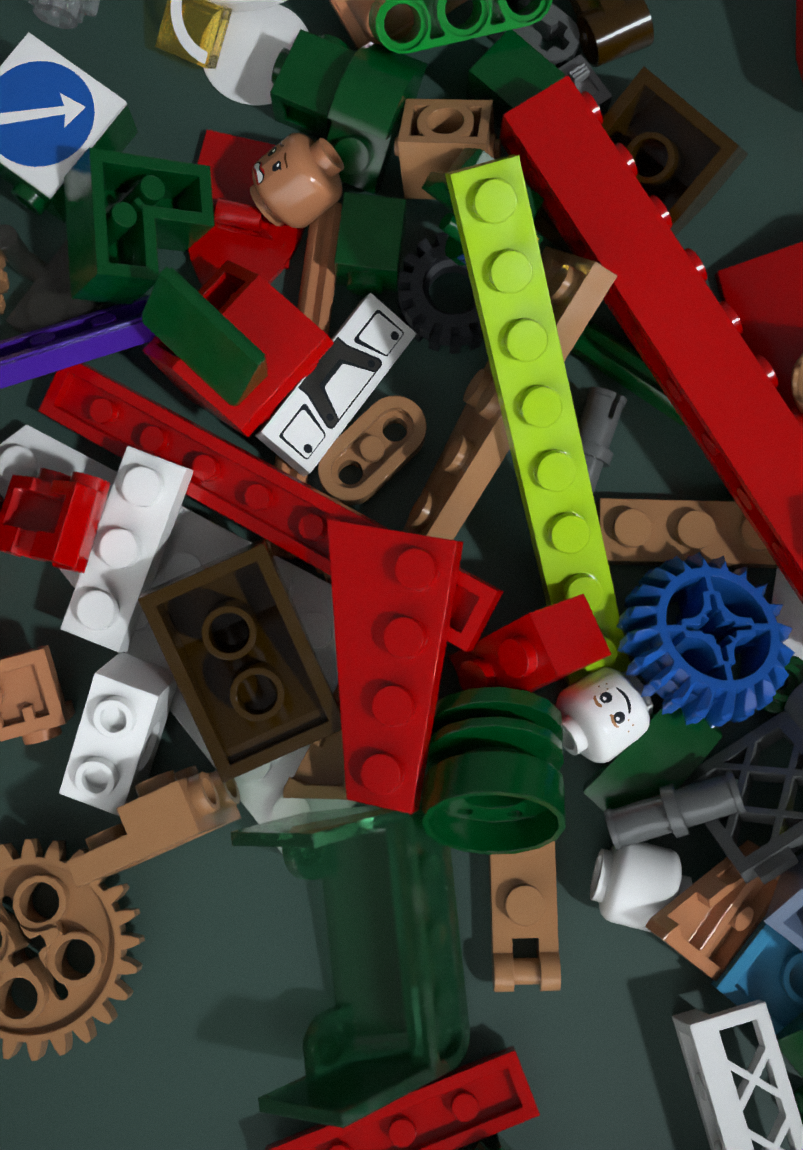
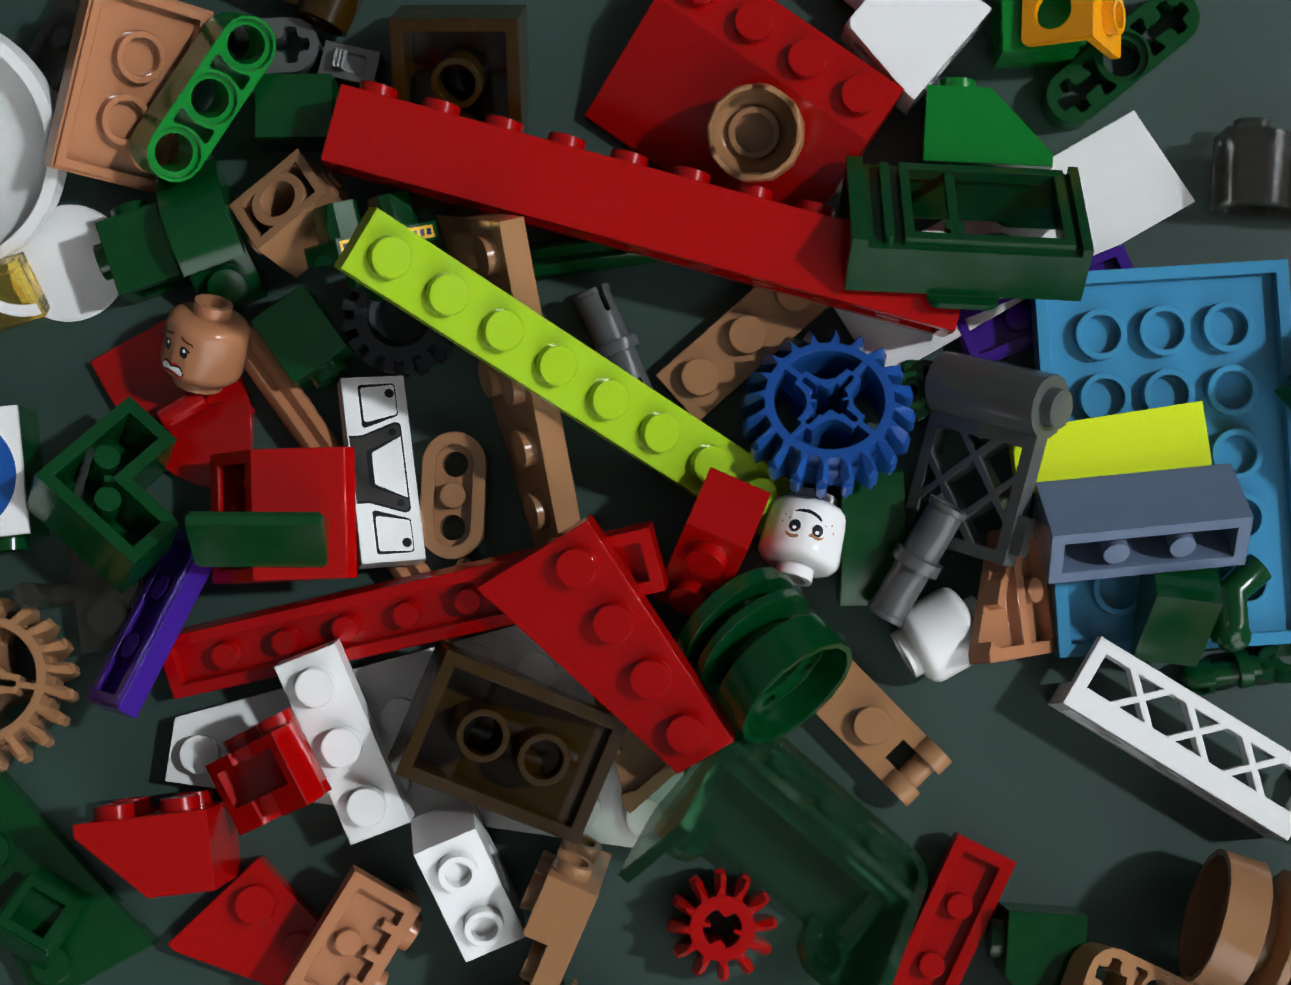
camera: 40 degrees left, 5 degrees up
(253, 958) = (714, 945): none -> red gear

